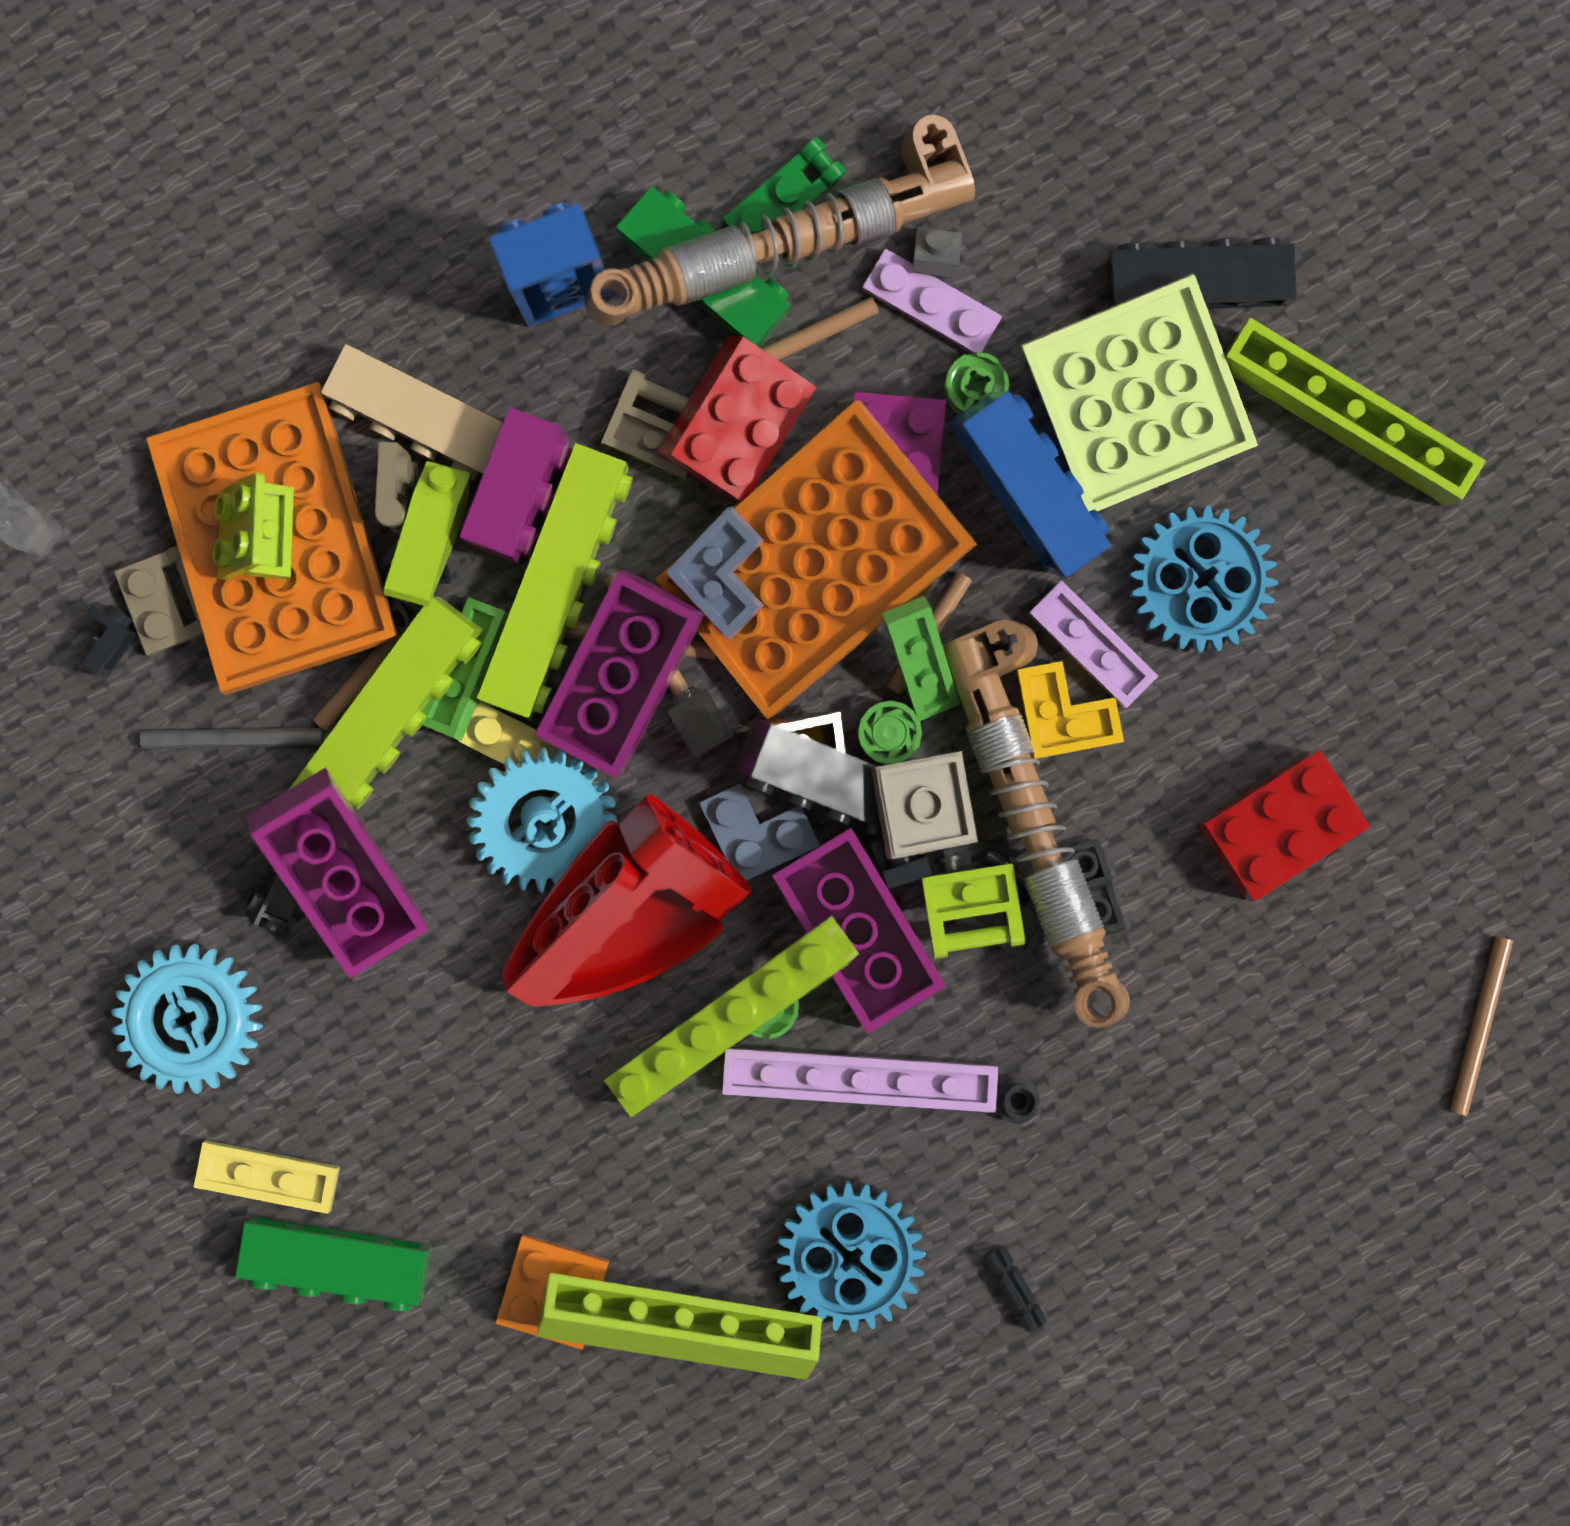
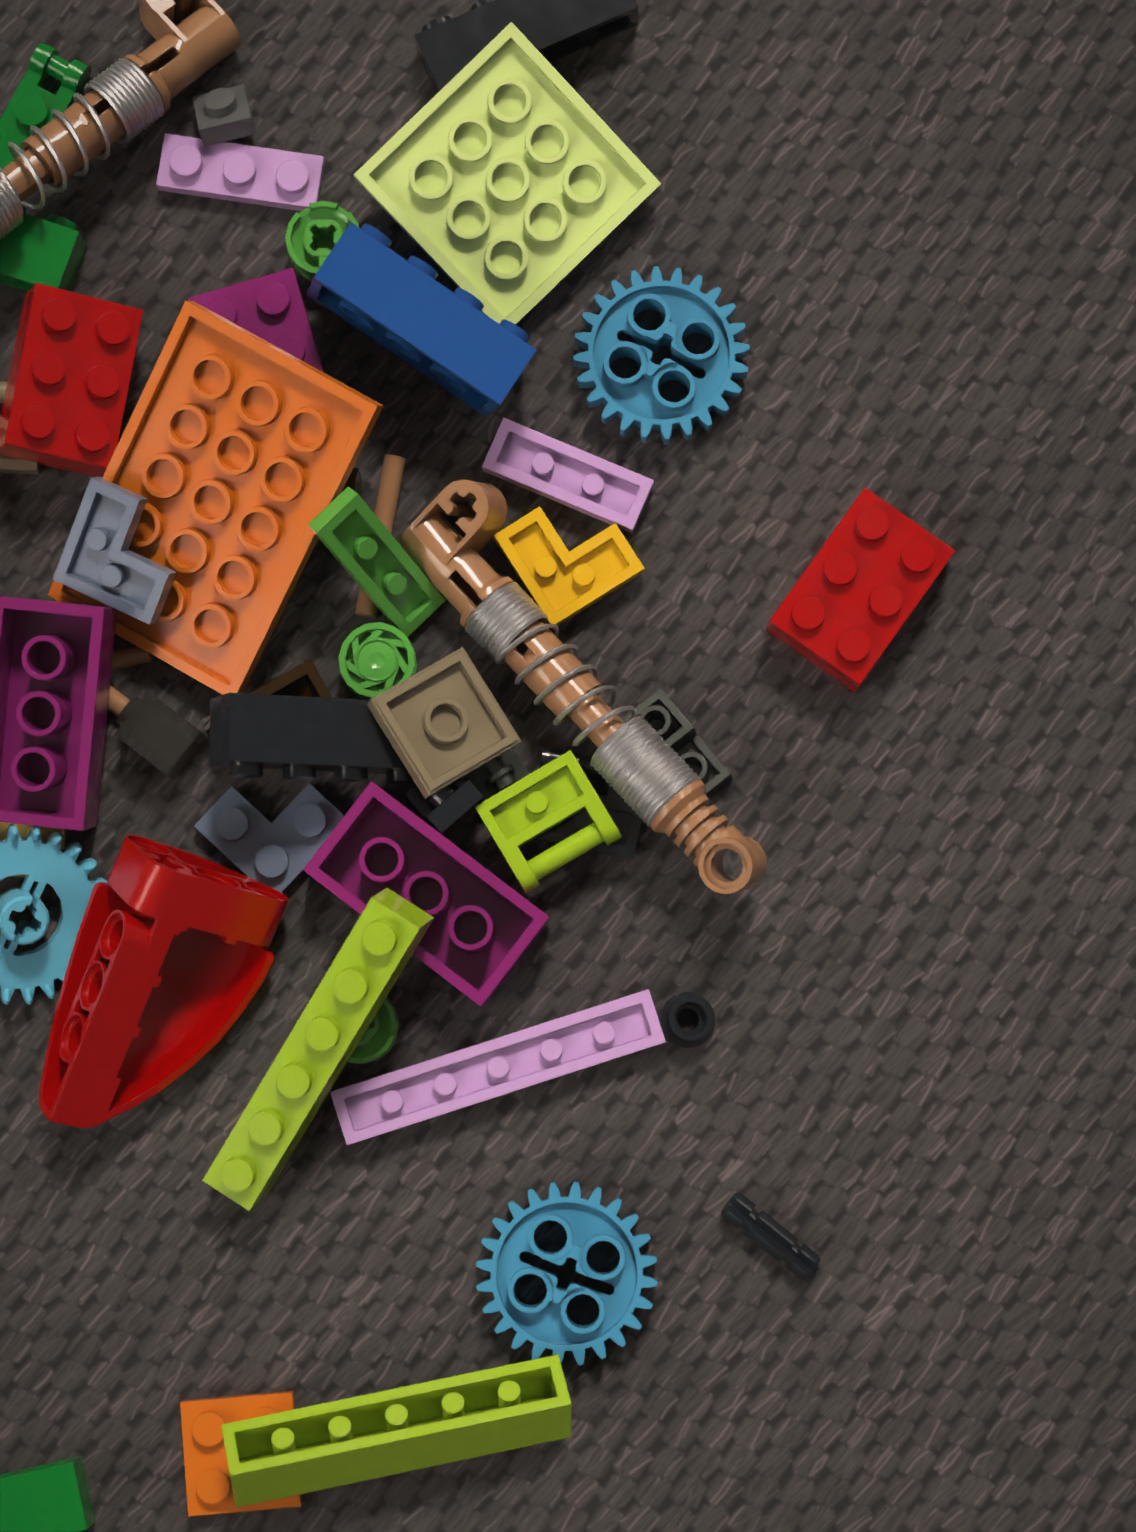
camera: 15 degrees left, 5 degrees down
(822, 329) = (132, 247): medium nougat bar -> none
(1352, 414) = (750, 108): lime brick -> none

